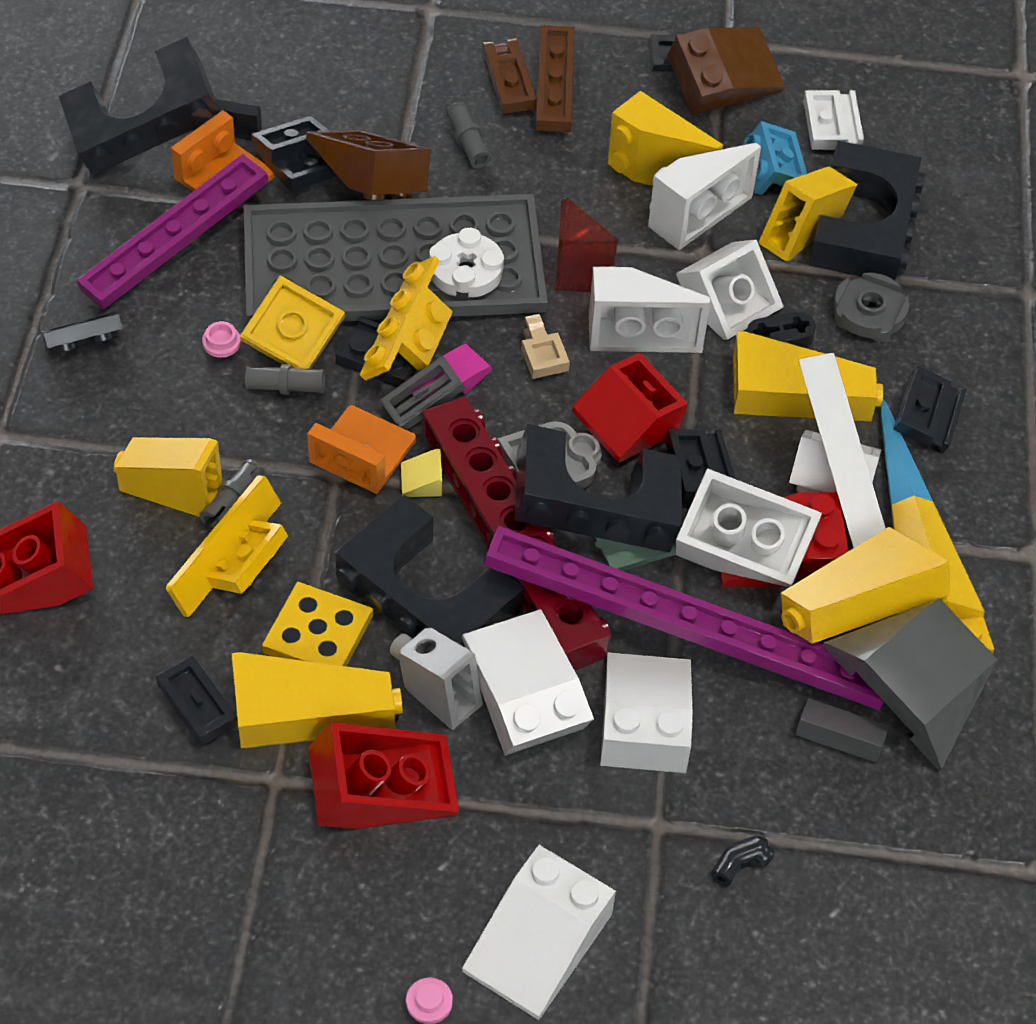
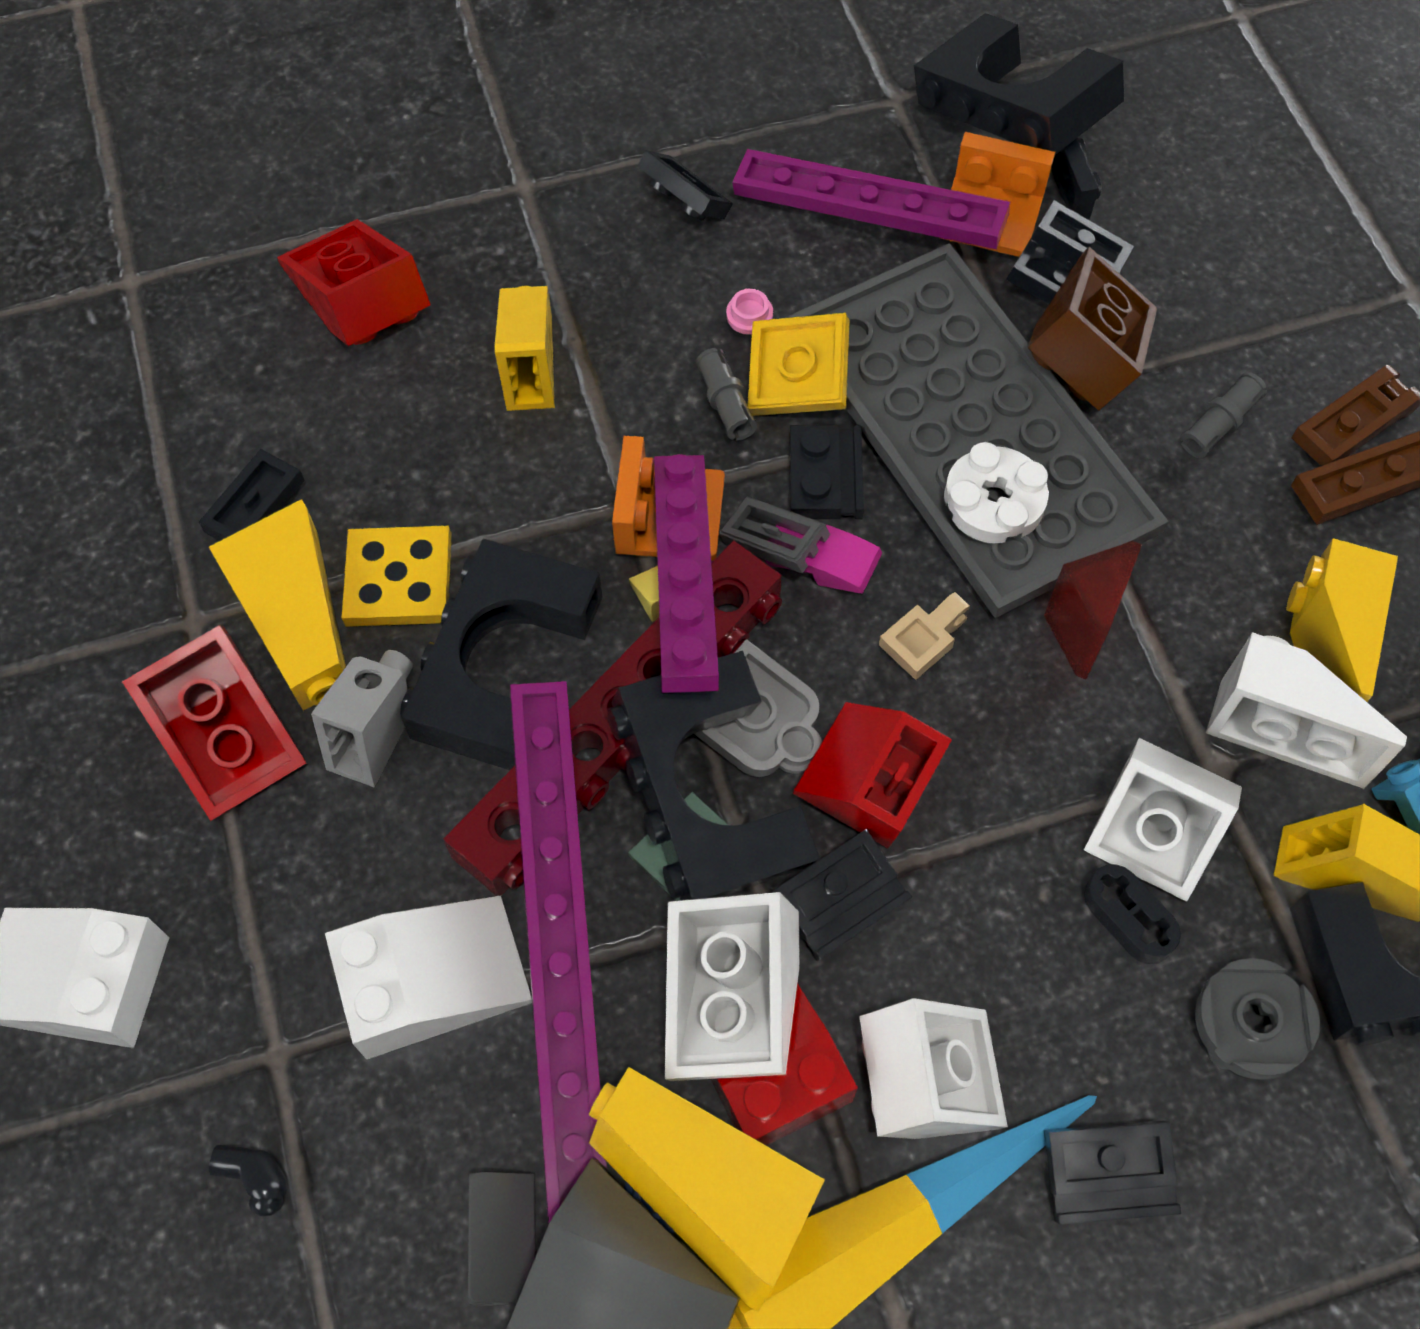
camera: 70 degrees right, 10 degrees up
(230, 491) = (537, 415): dark grey pin -> none
(232, 550) = (461, 445): yellow bracket -> none
(412, 324) = (866, 479): yellow bracket -> none
(445, 437) = (685, 576): none -> magenta plate
(527, 682) = (386, 815): white slope -> none
(644, 313) = (1027, 705): white slope -> none
(772, 382) = (1051, 968): yellow slope -> none
(842, 447) = (910, 1064): white sticker -> none

